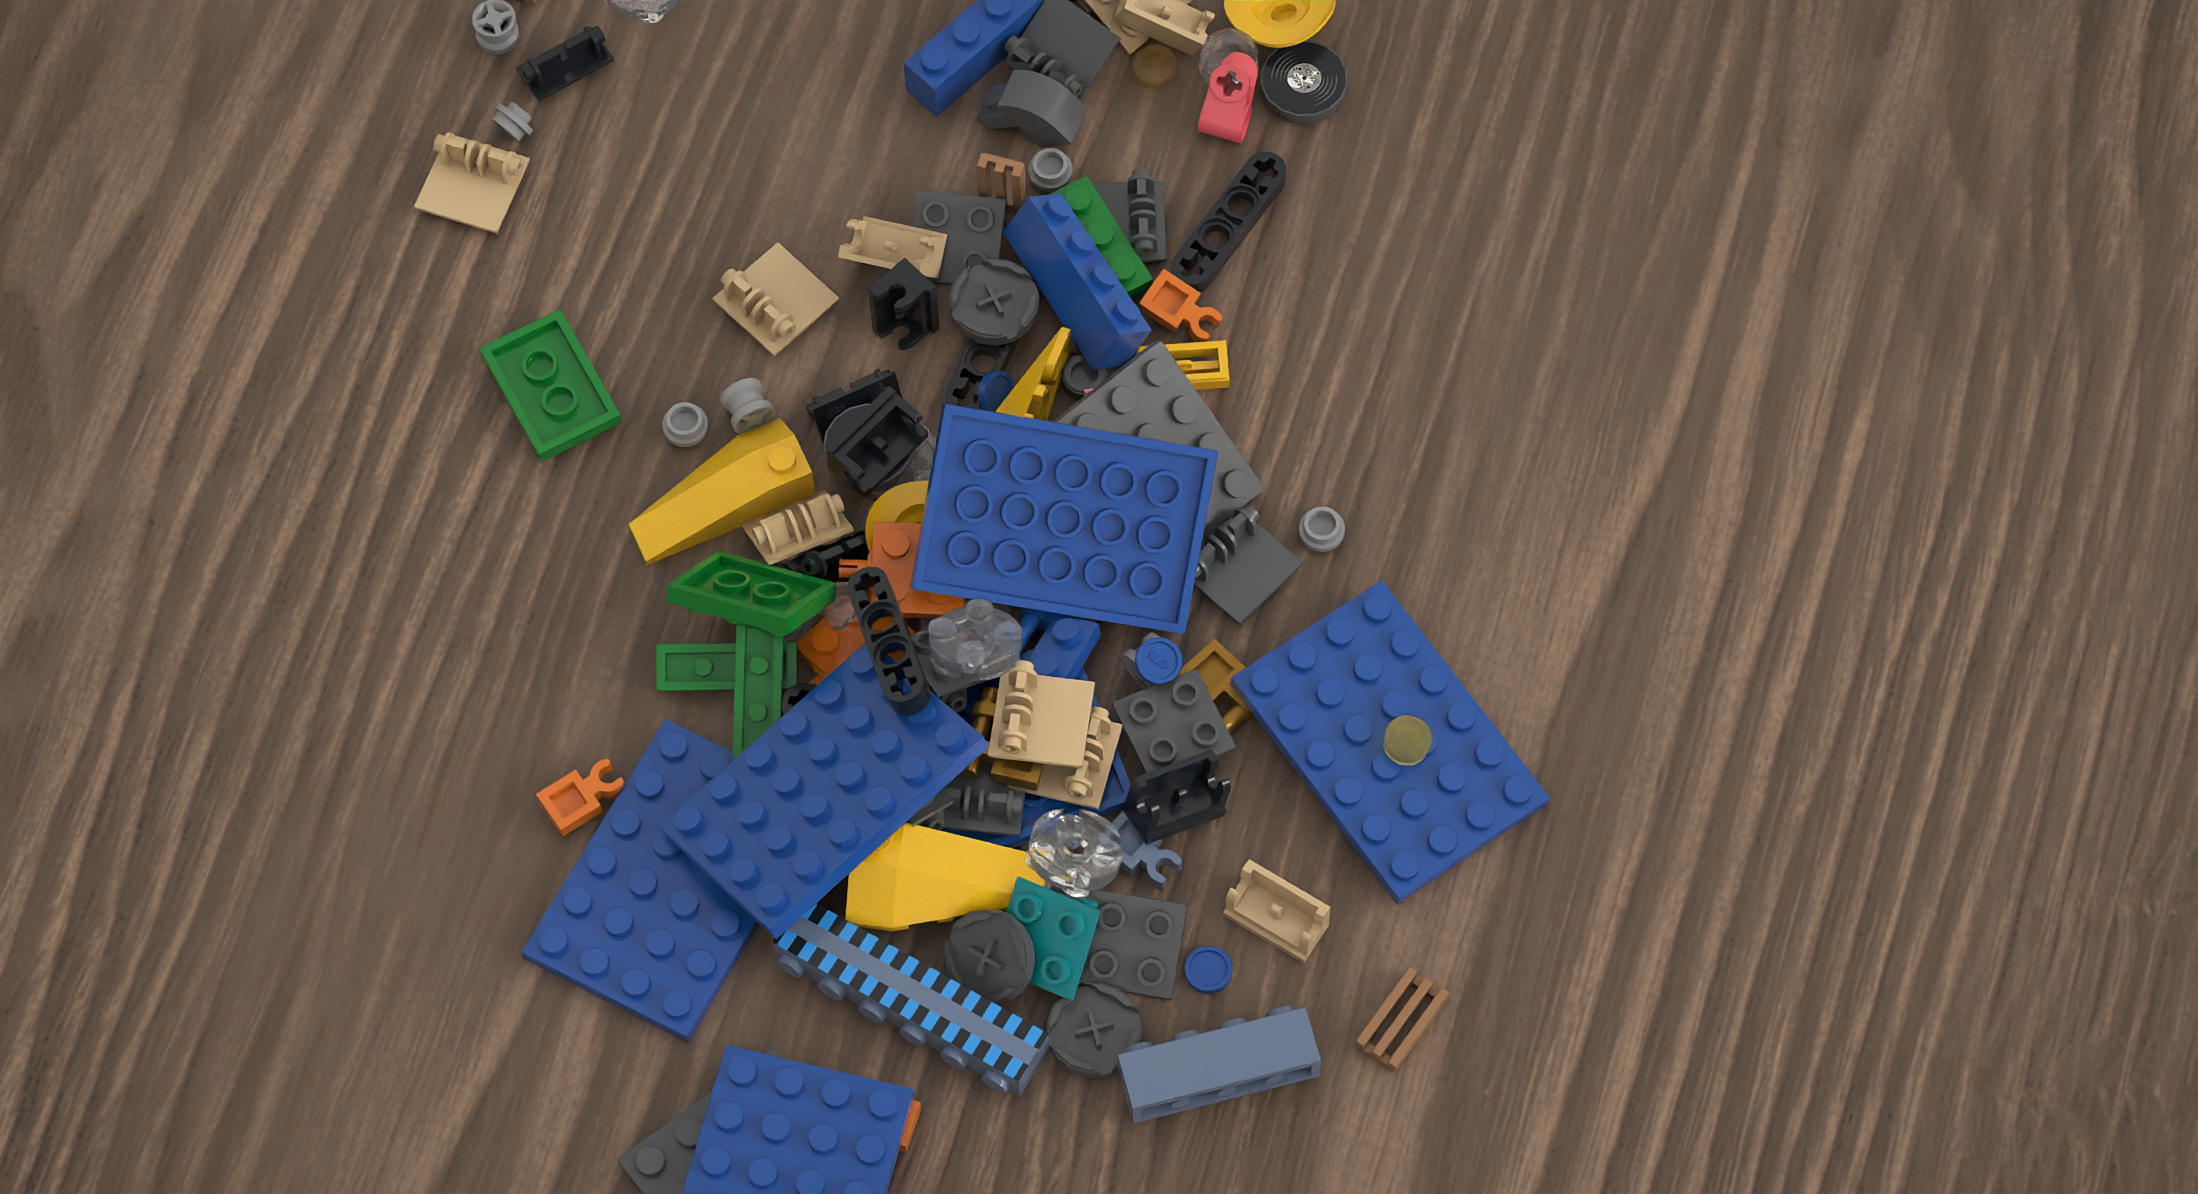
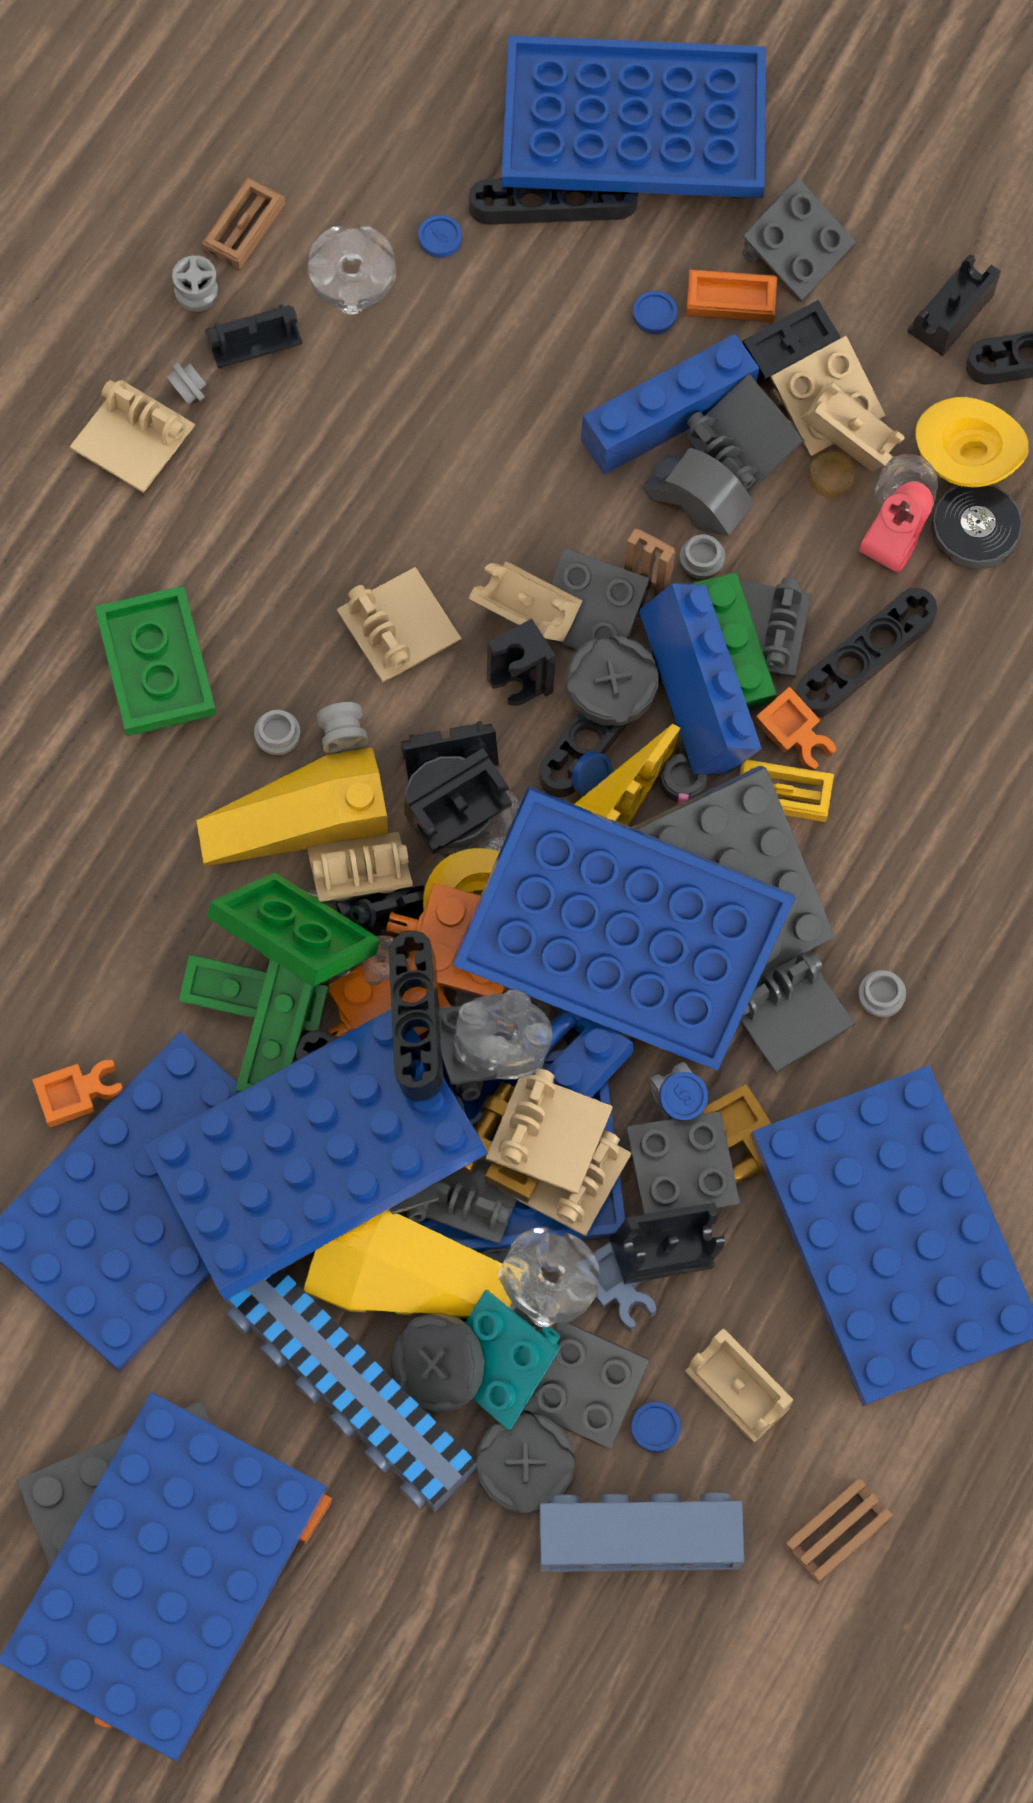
camera: 10 degrees right, 5 degrees up
(1407, 740) = (914, 1242): clear yellow tile -> none

